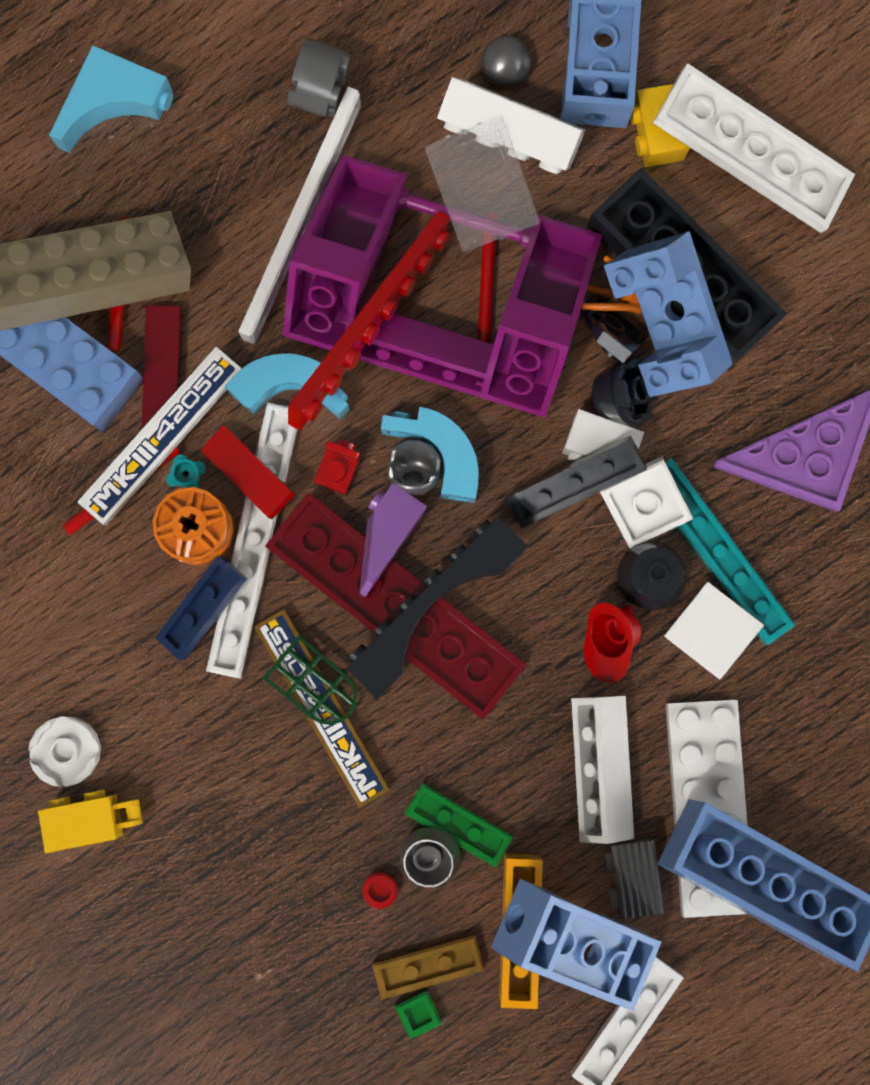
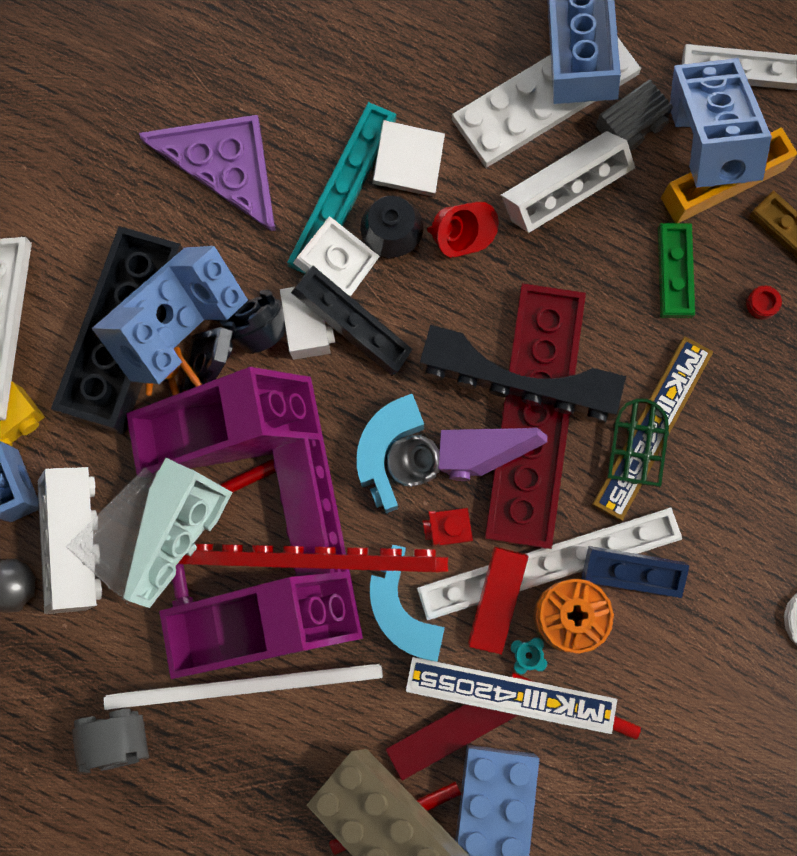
camera: 115 degrees left, 5 degrees down
(430, 857) = (716, 276): flat silver hat -> none
(479, 224) = (174, 516): none -> light aqua wedge

